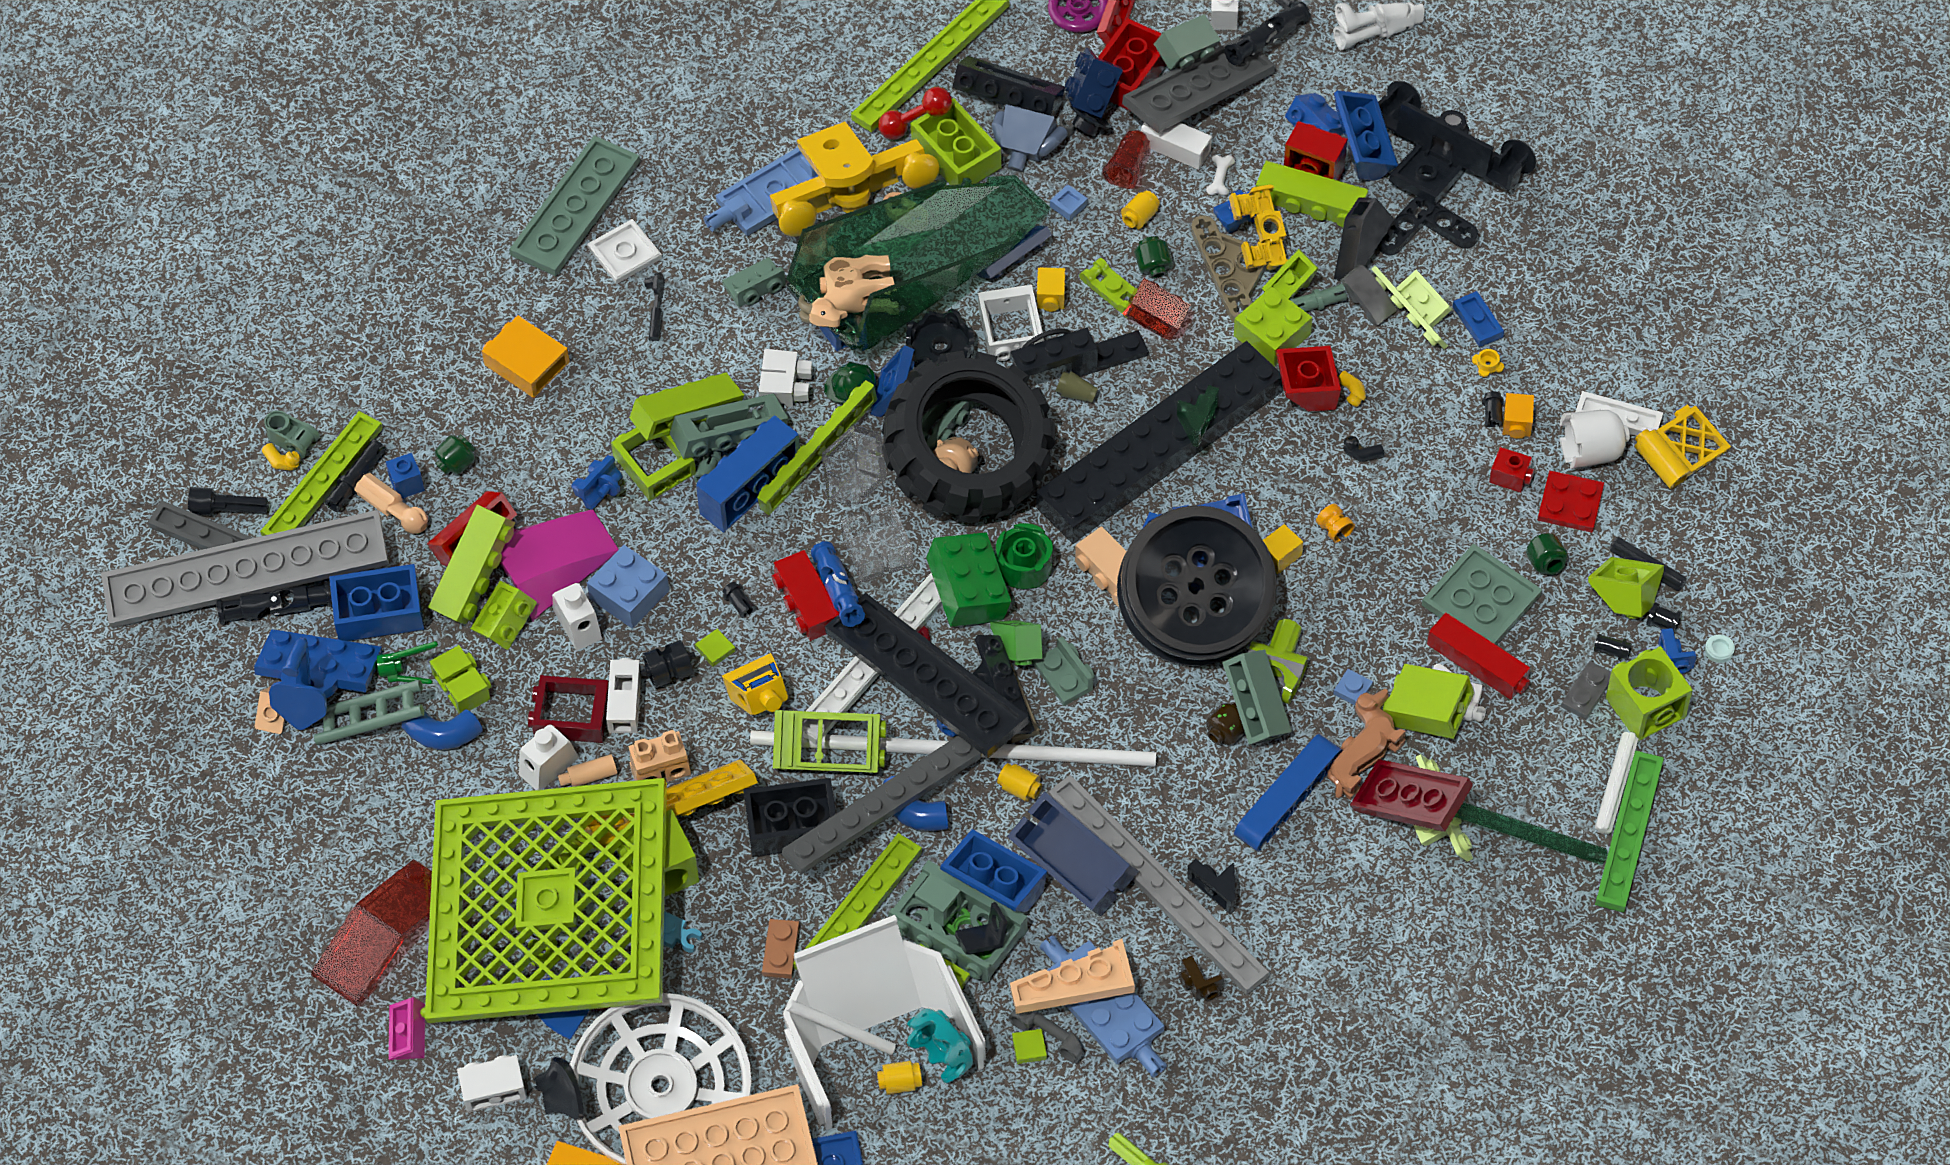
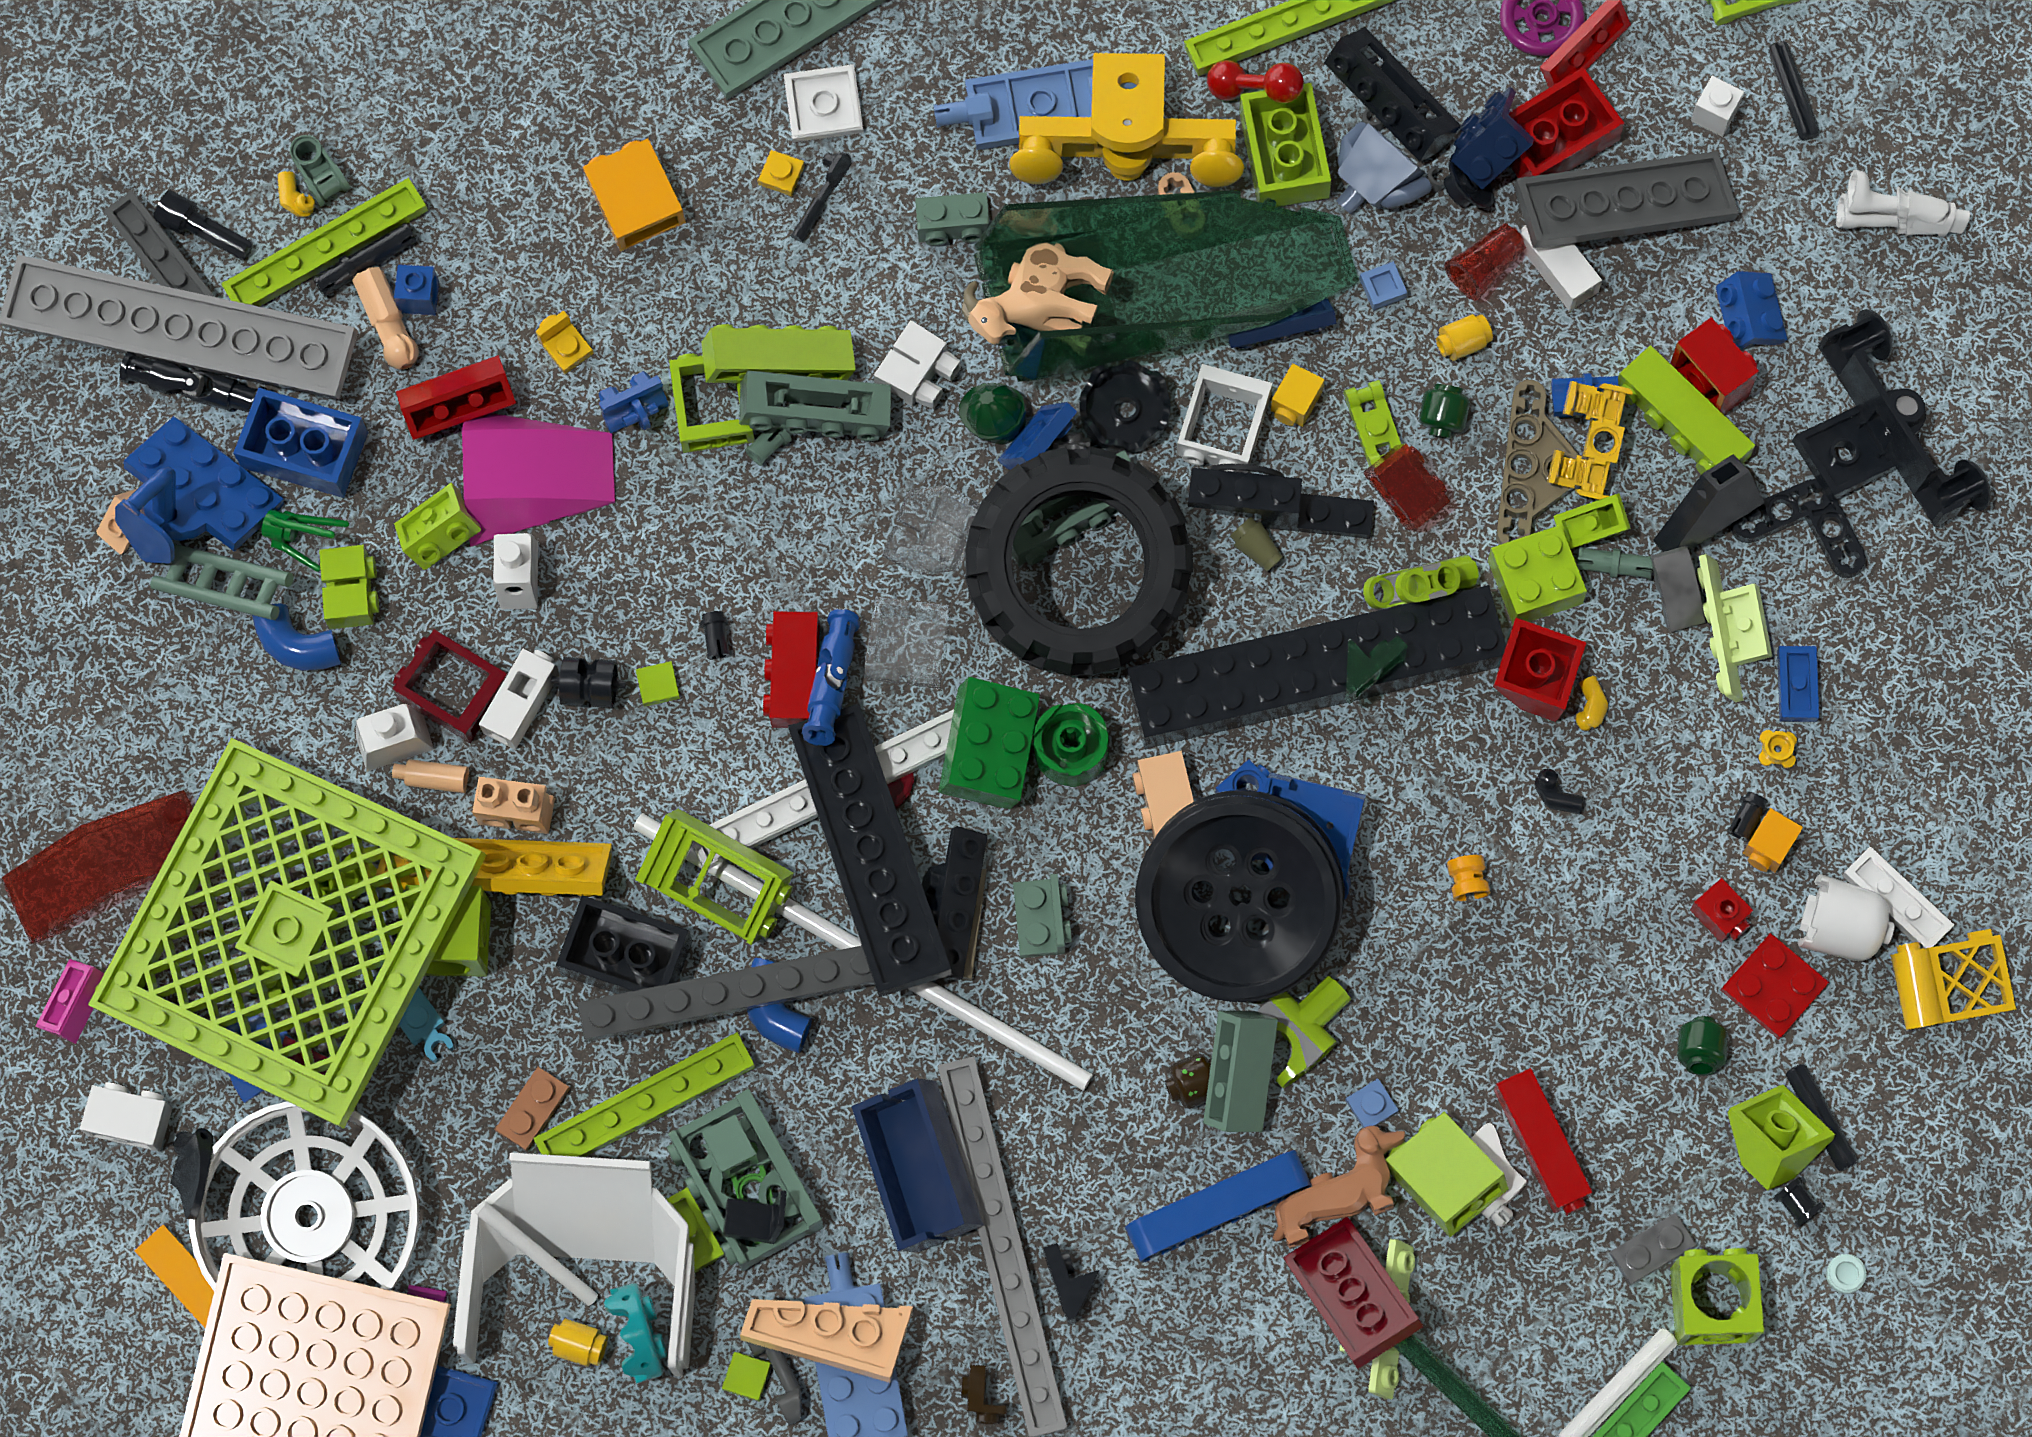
camera: 30 degrees right, 15 degrees up
(454, 455) = (488, 288): dark green head -> none
(472, 565) = (426, 450): lime brick -> none
(526, 467) = (563, 342): none -> yellow bracket
(619, 304) = (781, 173): none -> yellow plate
(628, 586) = (595, 558): medium blue brick -> none
(738, 478) = (805, 478): blue brick -> none
(756, 686) = (676, 763): yellow torso -> none
(810, 455) = (893, 486): lime plate -> none
(957, 454) = (1053, 577): light nougat piece -> none
(996, 872) = (812, 1146): blue slope -> none
(1020, 640) = (1006, 851): bright green slope -> none
(1020, 782) = (912, 1035): yellow brick -> none
(1187, 42) = (1636, 140): sand green brick -> none
(1198, 358) = (1422, 582): none -> lime connector
(1218, 186) = (1601, 319): white piece -> none
(1267, 33) = (1731, 168): black piece -> none
(1284, 547) = (1381, 881): yellow brick -> none
(1366, 134) = (1790, 368): blue slope -> none
(1482, 594) = (1592, 1063): sand green plate -> none
(1613, 646) = (1715, 1207): black pin -> none
(1682, 660) = (1781, 1249): blue bracket -> none

